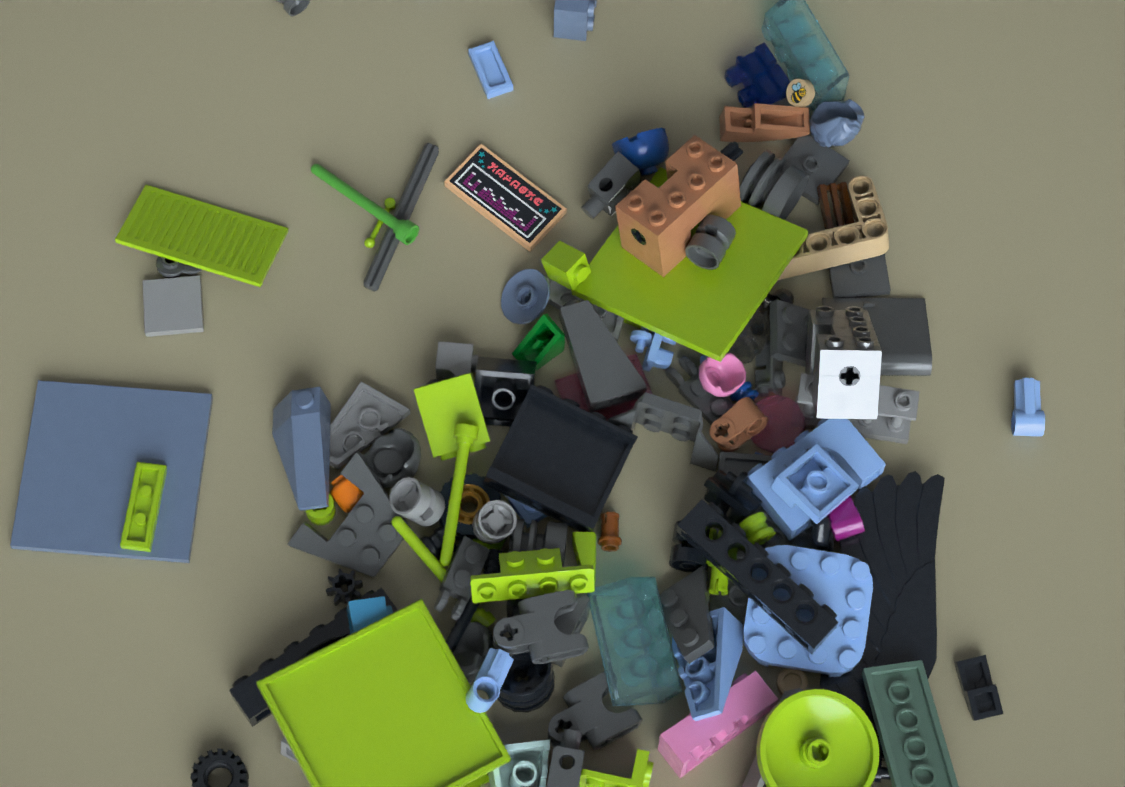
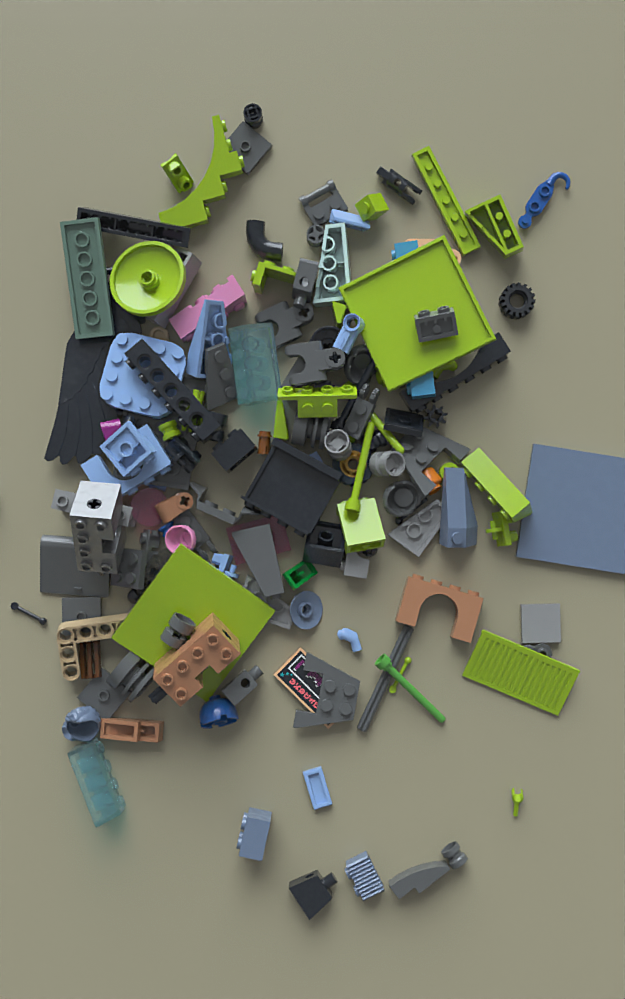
camera: 175 degrees left, 20 degrees up
(143, 506) = (562, 480): lime tile -> none
(203, 73) = (517, 799): none -> lime hand
(239, 431) = (500, 530): none -> lime hips
(247, 484) = (497, 486): none -> lime wedge
(353, 699) = (436, 324): none -> dark grey bracket
(356, 337) = (466, 605): none -> nougat arch
(395, 569) = (403, 422): none -> black tile
(455, 267) = (350, 636): none -> light blue arm
(472, 183) = (336, 695): none -> dark grey wing
(507, 725) = (338, 312): none -> lime slope
(566, 265) = (277, 625): lime brick -> none
(654, 508) = (233, 450): none -> black brick
(760, 75) = (138, 771): clear blue hips -> none
(800, 92) = (103, 748): tan tile -> none
(958, 277) = (15, 606): none -> black hinge
(978, 688) = (43, 323): black slope -> none

